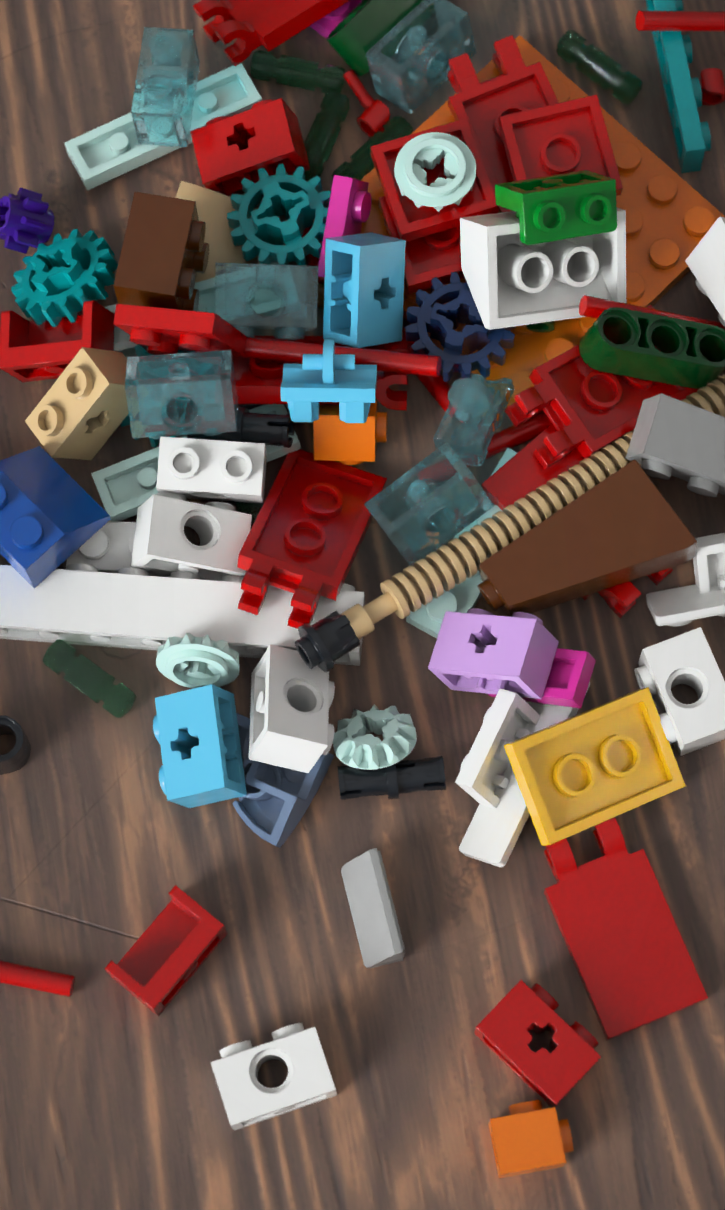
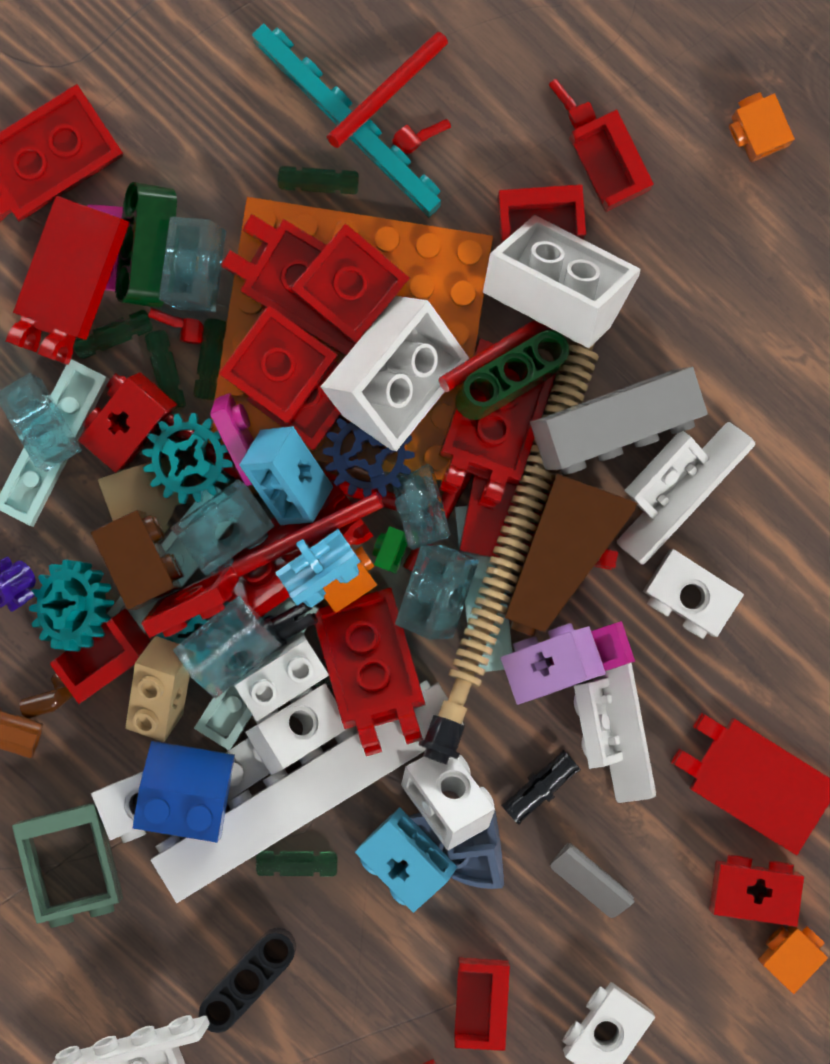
camera: 40 degrees left, 15 degrees up
(198, 661) = (363, 806): light aqua gear -> none
(368, 751) = (514, 787): light aqua gear -> none
(412, 440) = (390, 549): none -> green plate
(426, 152) = (290, 347): light aqua gear -> none
(561, 205) = (383, 332): green bracket -> none
(594, 766) = (669, 690): yellow plate -> none

